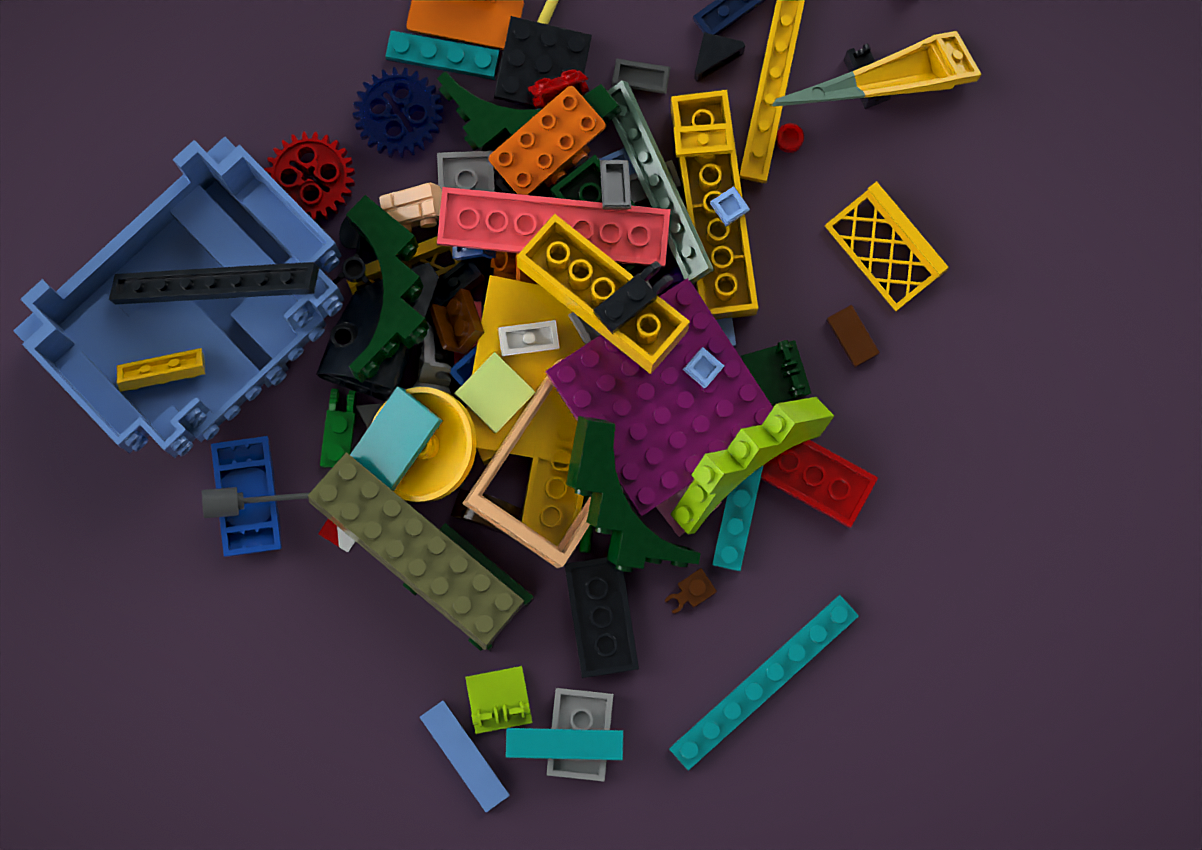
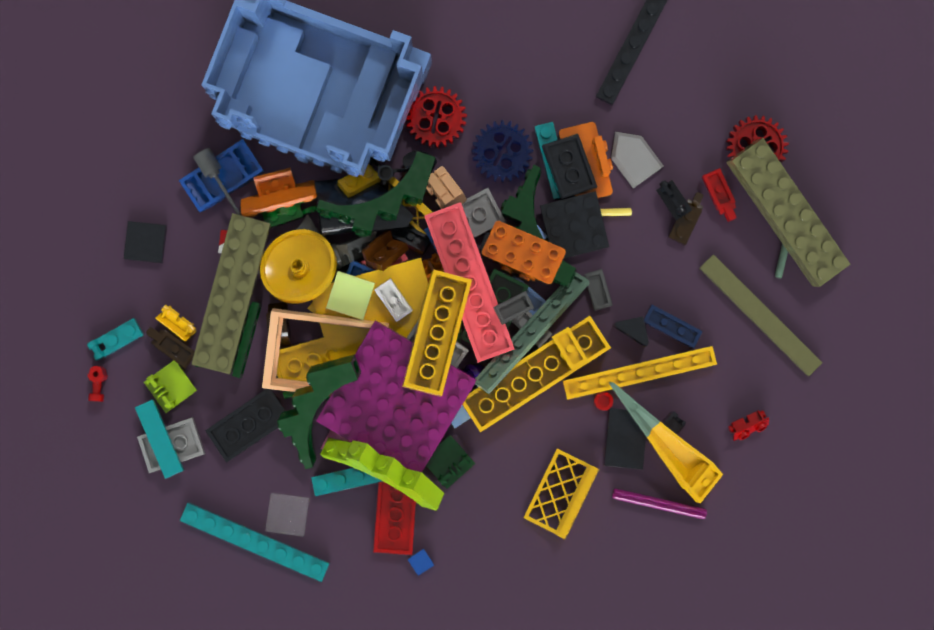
camera: 65 degrees right, 5 degrees up
(160, 369) = (269, 87): yellow plate -> none
(215, 283) = (332, 94): black plate -> none
(284, 643) = (145, 242): none -> black tile
(305, 431) = (277, 191): none -> orange bracket
(348, 320) = (353, 185): none -> yellow plate
(396, 437) = (294, 248): teal tile -> none
(398, 745) = (116, 339): none -> teal plate
(407, 655) = (179, 326): none -> yellow hinge
(438, 792) = (97, 375): none -> red leg
(445, 672) = (171, 346): none -> dark brown hinge
(461, 35) = (569, 166): none -> black tile
(464, 756) = (127, 382): medium blue tile -> none
(546, 89) = (558, 236): red hinge -> none
(631, 299) = (437, 352): black hinge -> none
(693, 589) = (291, 473): reddish brown plate -> none
(703, 367) = (424, 416): light blue tile -> none
(729, 206) = (536, 384): light blue tile -> none
(747, 621) = (287, 514): none -> clear tile
(853, 133) = (624, 441): none -> black tile
(853, 336) = (495, 498): reddish brown tile -> none
(892, 472) = (420, 561): none -> blue tile
(957, 129) = (659, 503): none -> magenta axle

